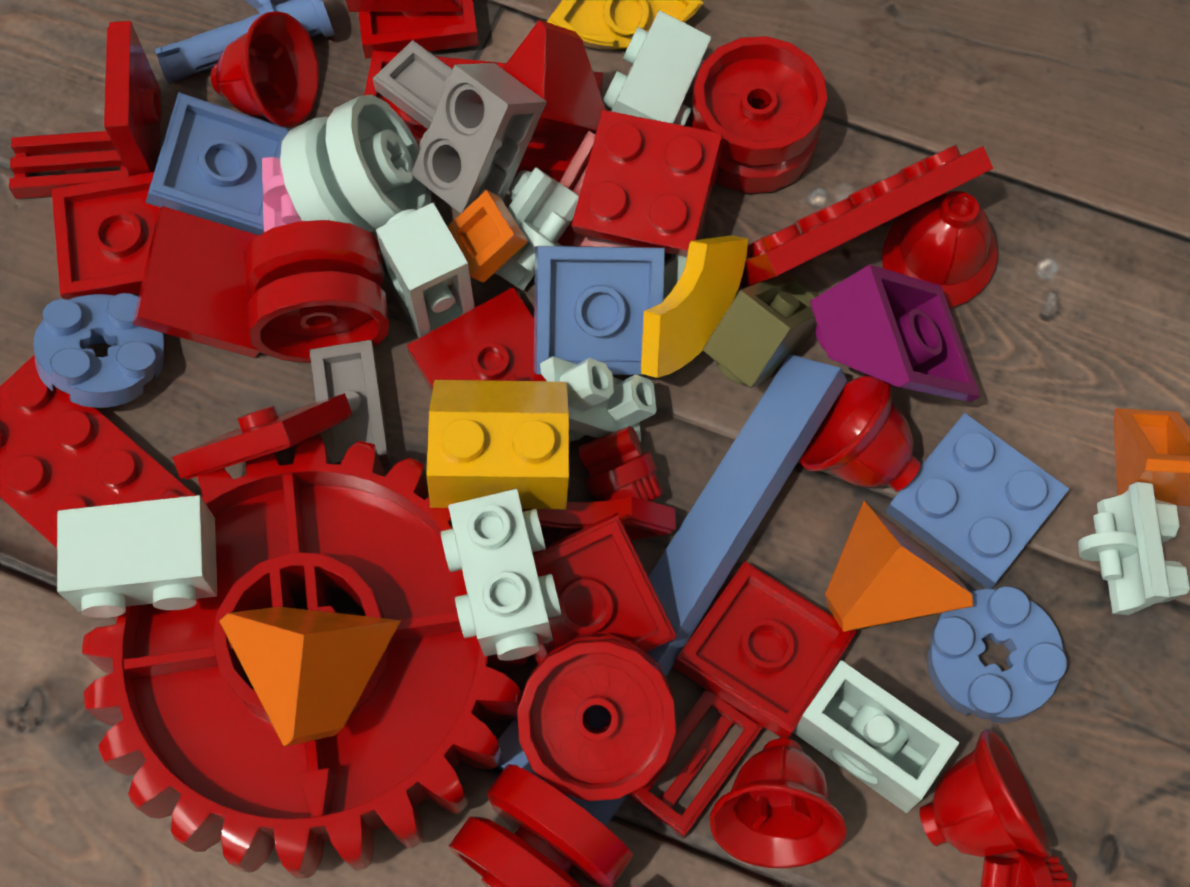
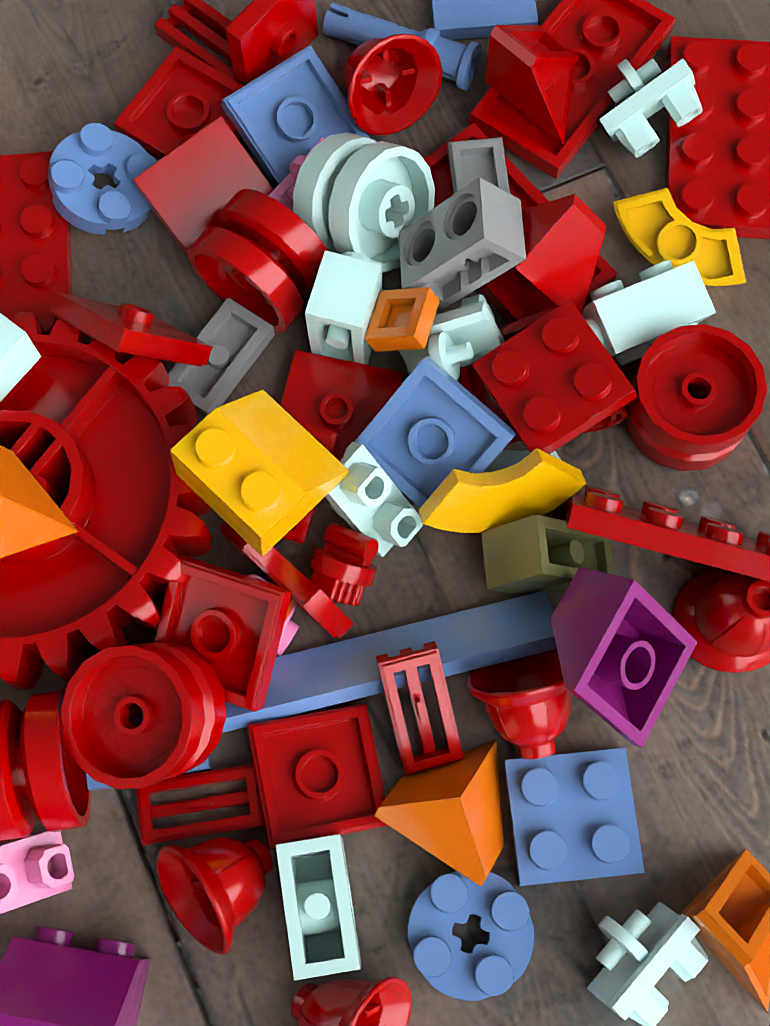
camera: 45 degrees right, 5 degrees up
(504, 596) = (163, 561): light aqua brick -> none
(753, 493) = (409, 661): none -> tile

